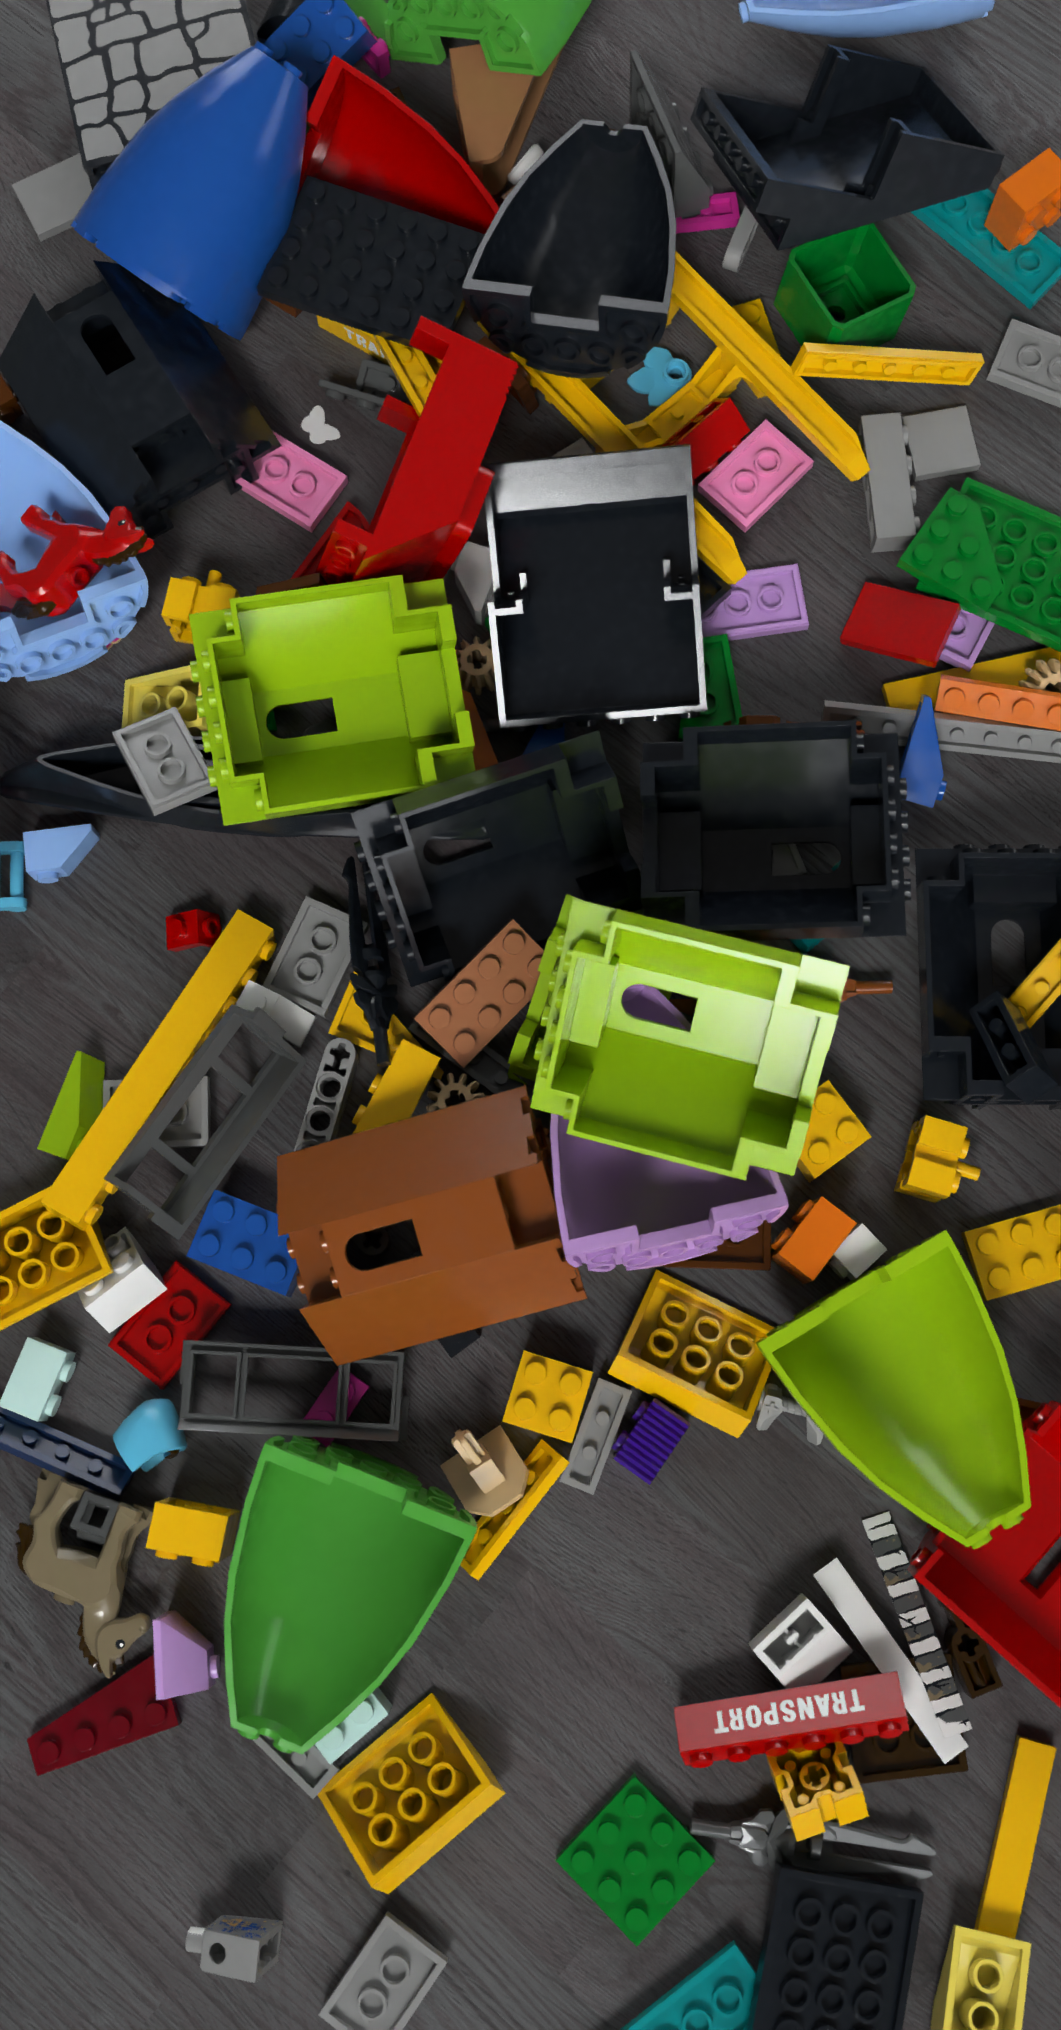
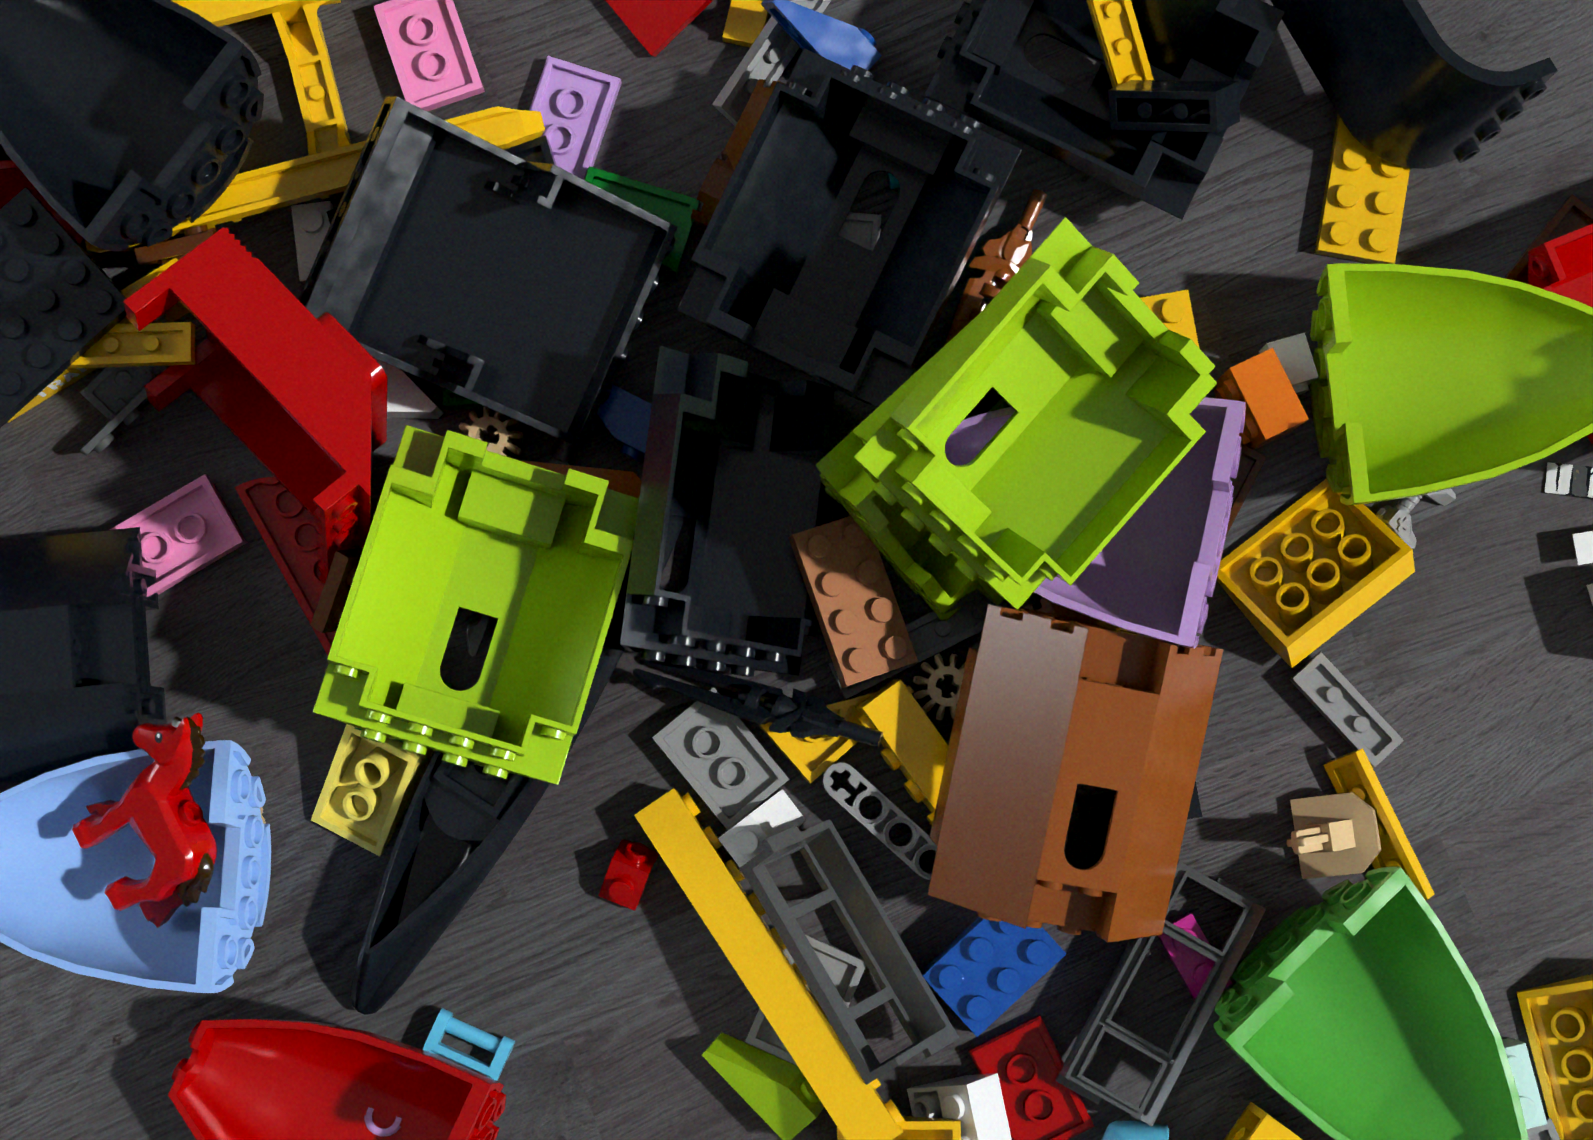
camera: 65 degrees left, 5 degrees up
(57, 850) = (469, 980): light blue slope -> none
(164, 760) = (440, 816): light grey tile -> none
(189, 597) = (285, 698): yellow brick -> none
(317, 428) = (130, 480): white sticker -> none
(547, 1396) = (1287, 738): yellow brick -> none
(650, 1439) = (1376, 658): dark purple brick -> none
(655, 376) = (279, 94): medium azure plate -> none
(711, 434) = (360, 77): red brick -> none
(932, 1162) = (1239, 241): yellow brick -> none

